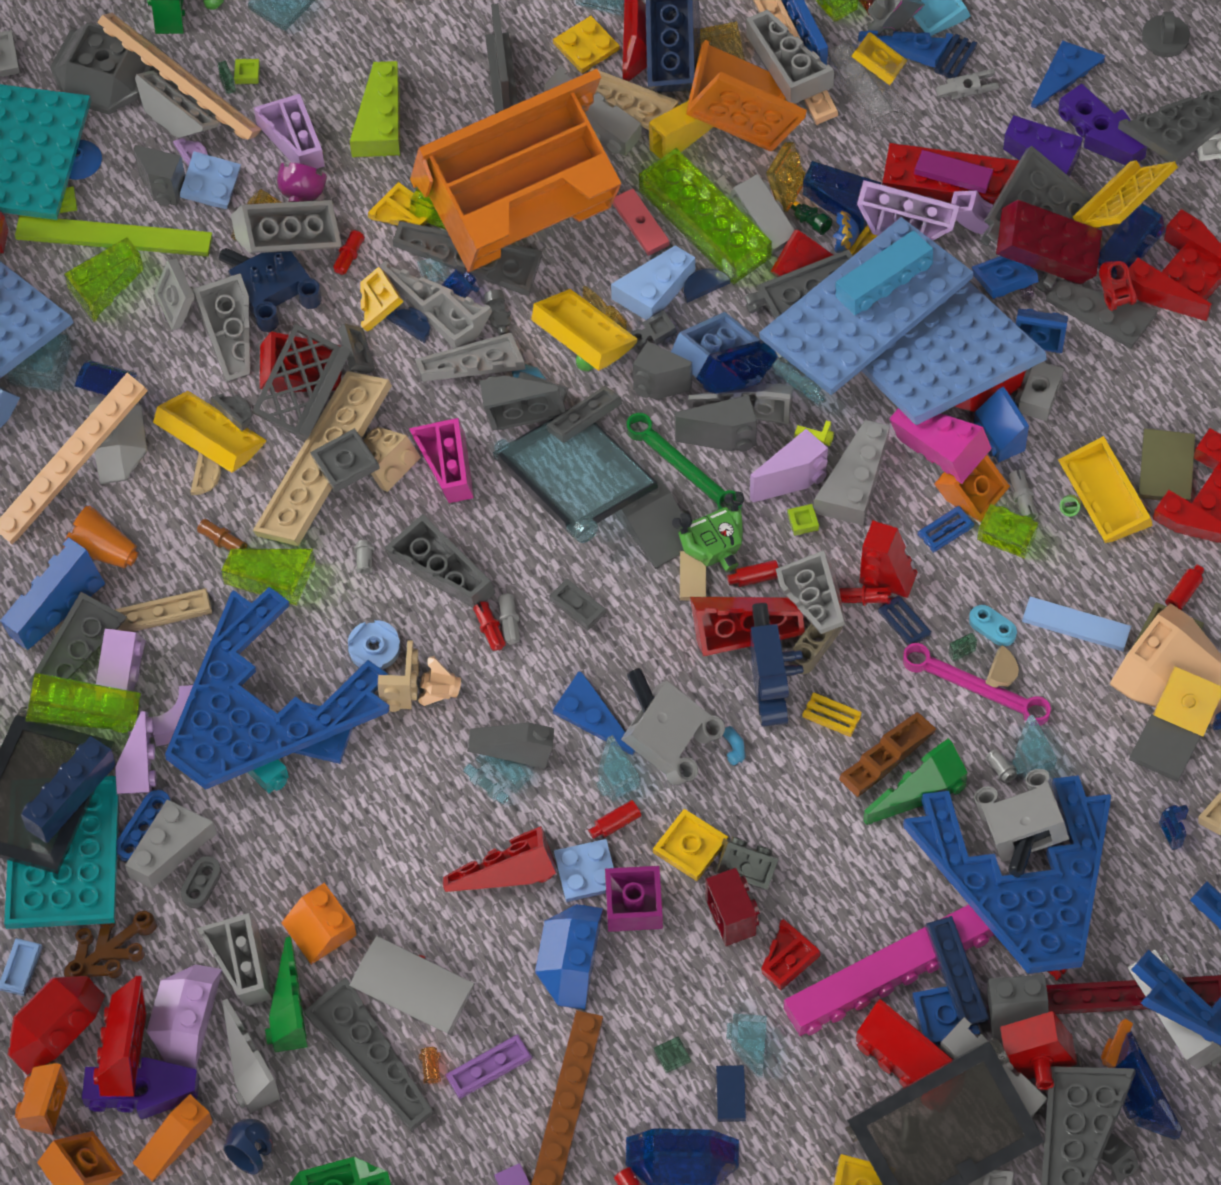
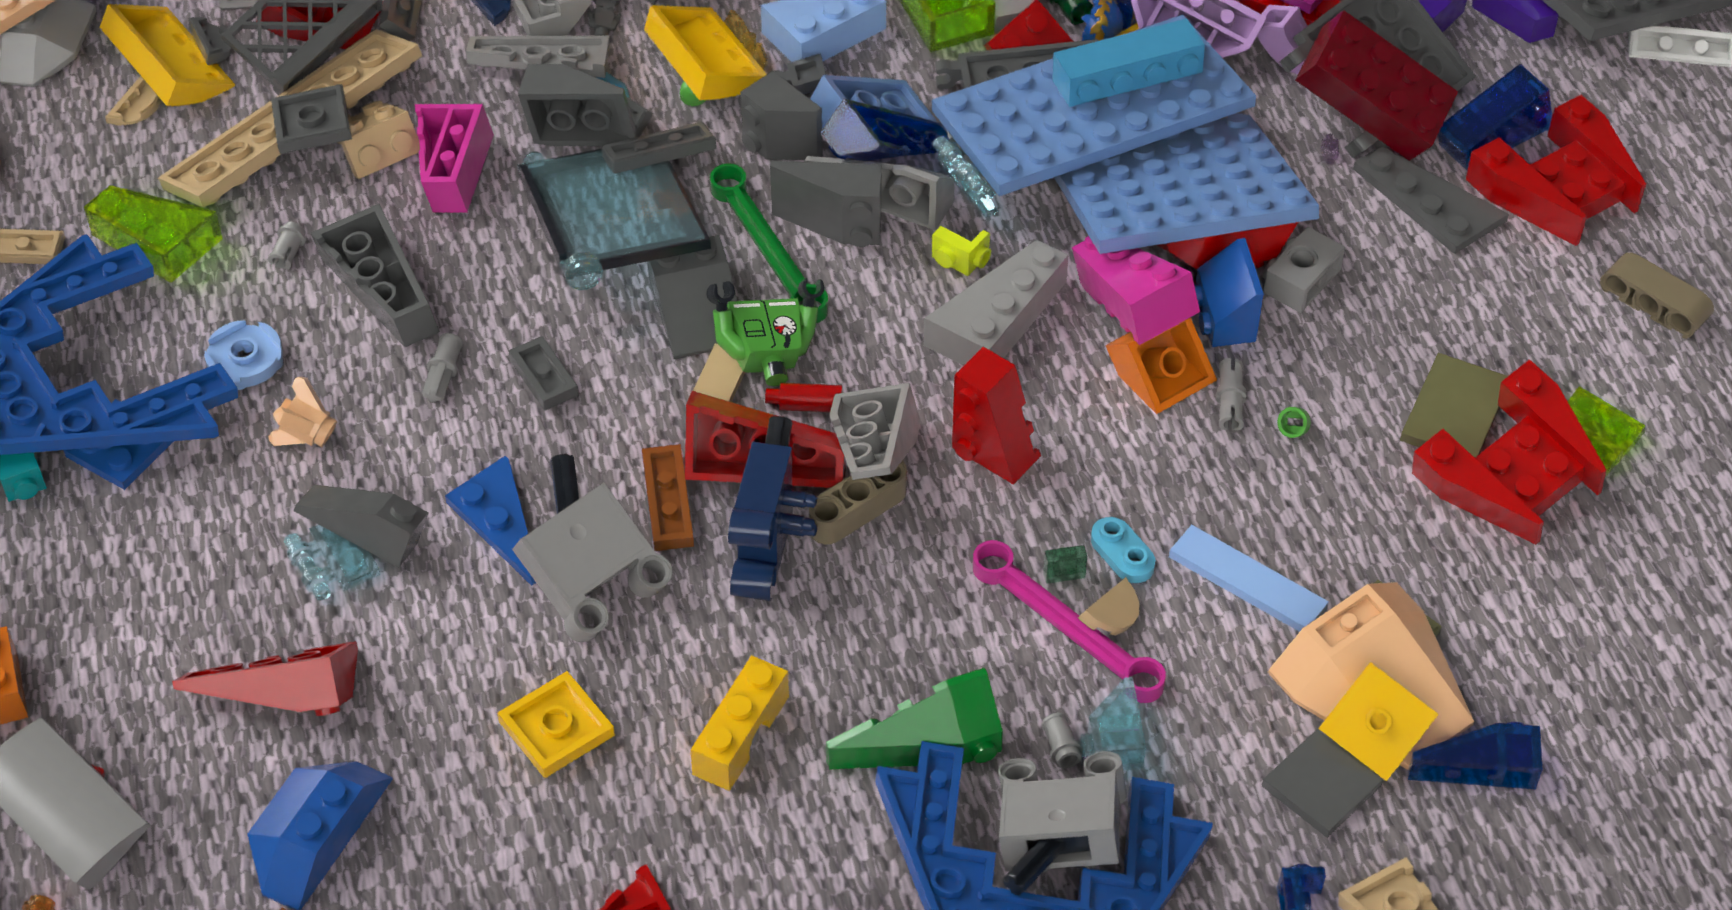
camera: 15 degrees right, 10 degrees down
(221, 536) = (110, 171): dark orange pin -> none
(401, 690) = (247, 411): tan bracket -> none
(489, 626) = (410, 369): red axle -> none
(583, 869) = (391, 719): light blue plate -> none
(615, 820) = (464, 662): red cylinder -> none
(616, 772) = (492, 597): clear light blue slope -> none
(633, 898) = (435, 772): magenta slope -> none
(695, 670) = (667, 497): none -> dark orange plate
(704, 282) = (891, 41): dark blue tile -> none
(731, 906) = (571, 821): dark red brick -> none
(737, 743) = (684, 607): dark azure arm -> none
(754, 864) = (623, 769): pearl dark grey bracket -> none
(790, 469) = (904, 274): lavender slope -> none
(803, 519) = (903, 347): lime plate -> none
(804, 812) = (726, 740): none -> yellow arch
(848, 731) = (816, 586): yellow tile -> none
(865, 595) = (950, 462): red axle -> none
(887, 754) = (892, 681): dark orange slope -> none
(926, 632) = (1020, 532): dark blue tile -> none
(969, 524) = (1106, 414): blue tile -> none
(995, 531) = (1189, 431): clear neon green brick -> none
(1004, 276) = (1304, 121): blue plate -> none
(1043, 328) = (1341, 198): blue slope -> none
(1105, 491) = (1353, 418): yellow slope -> none
(1117, 286) = (1457, 170): red piece -> none
(1123, 194) = (1498, 59): yellow fence -> none
(1185, 587) = (1431, 571): red cylinder -> none

